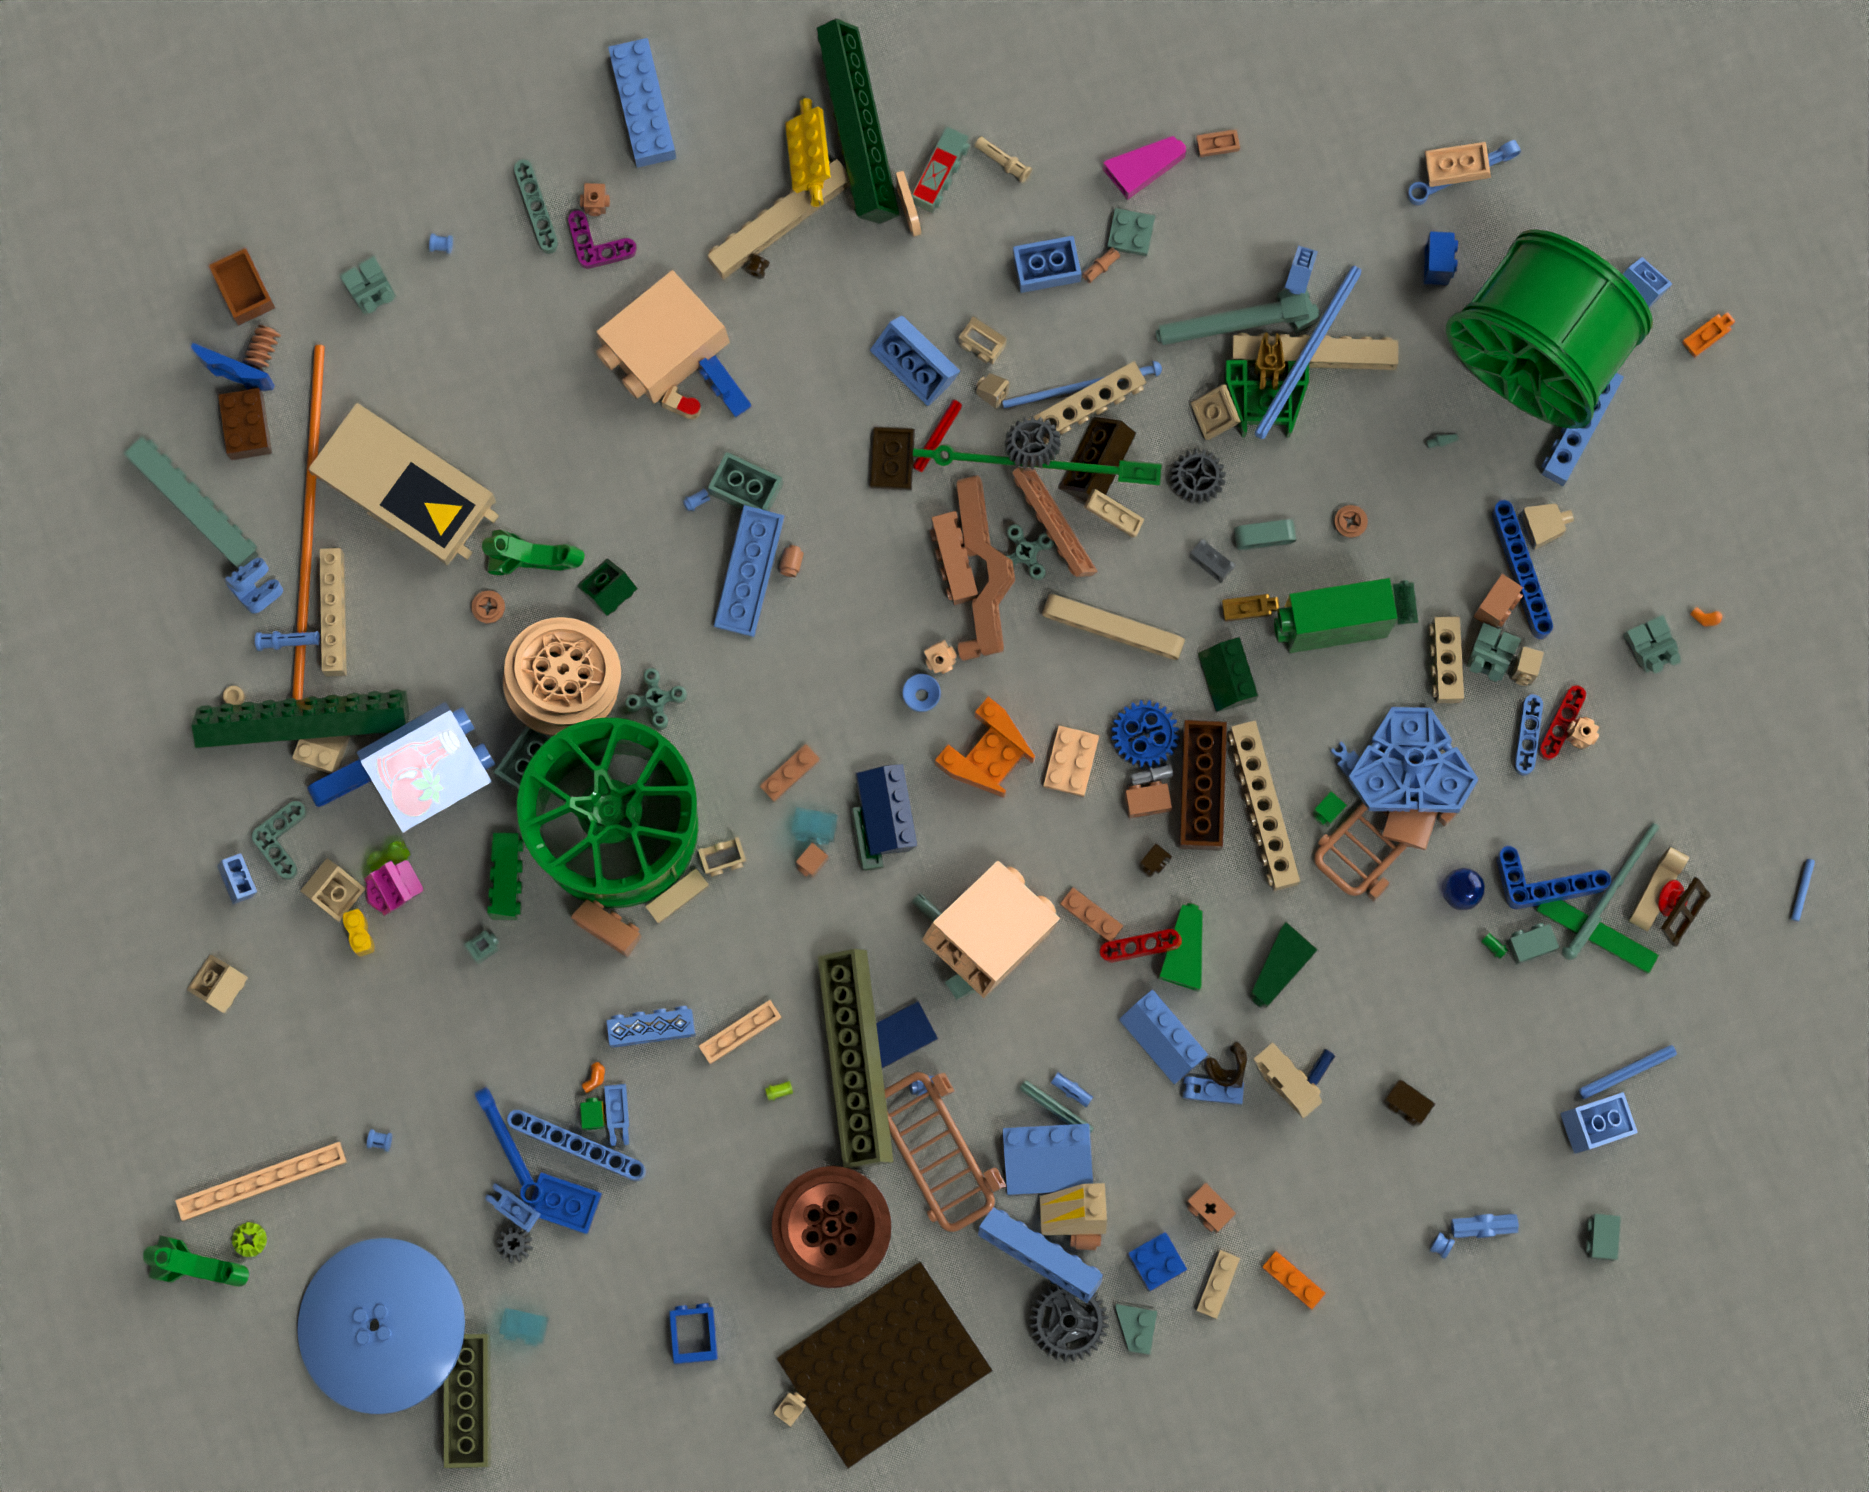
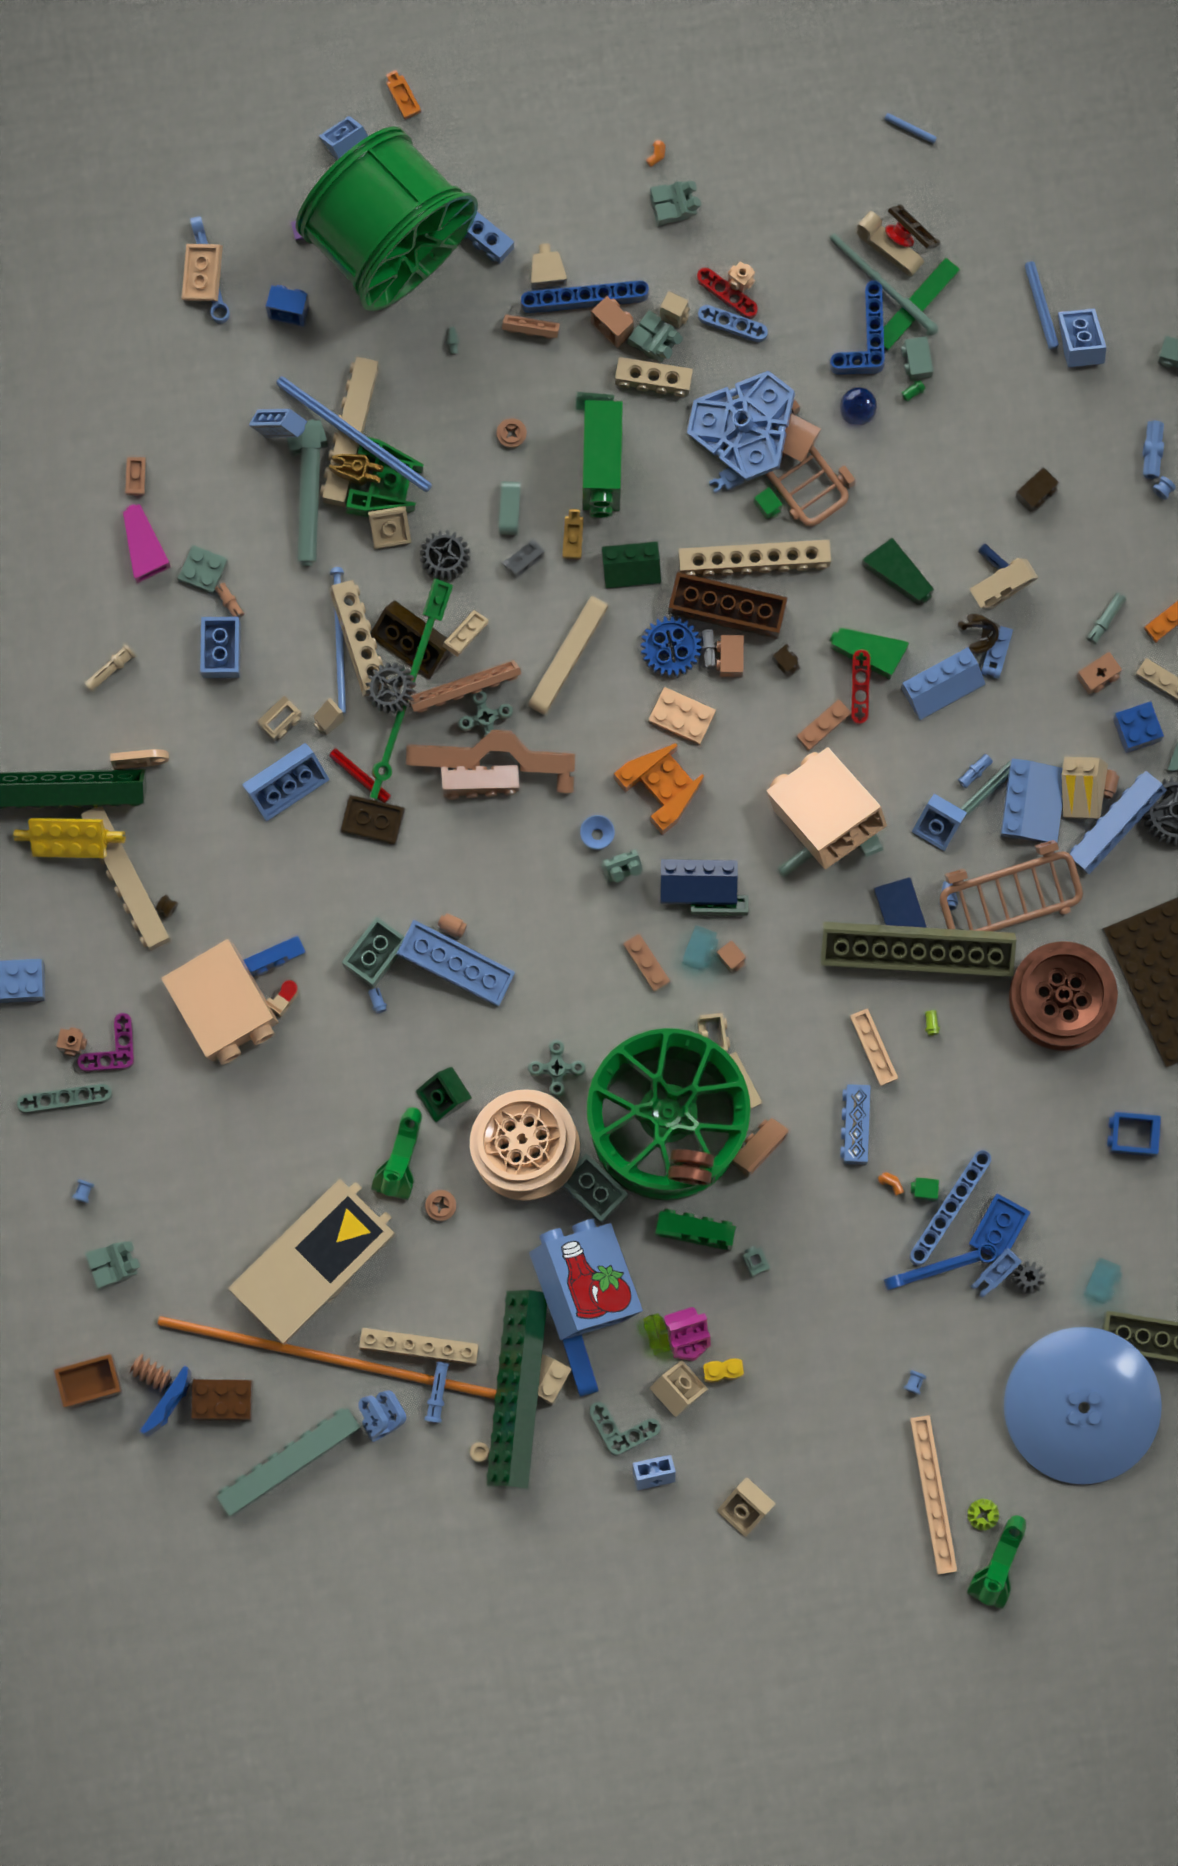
camera: 80 degrees left, 0 degrees up
(539, 836) = (691, 1167): none -> copper wheel
(617, 1111) = (926, 1167): medium blue hinge -> none
(887, 725) = (622, 866): none -> sand green hips
(940, 169) = (108, 725): sand green brick -> none
(940, 649) = (568, 809): light nougat brick -> none
(1005, 1059) = (939, 822): none -> medium blue slope
(1276, 1205) = (1102, 624): none -> sand green pin
(1475, 518) = (530, 326): none -> nougat plate

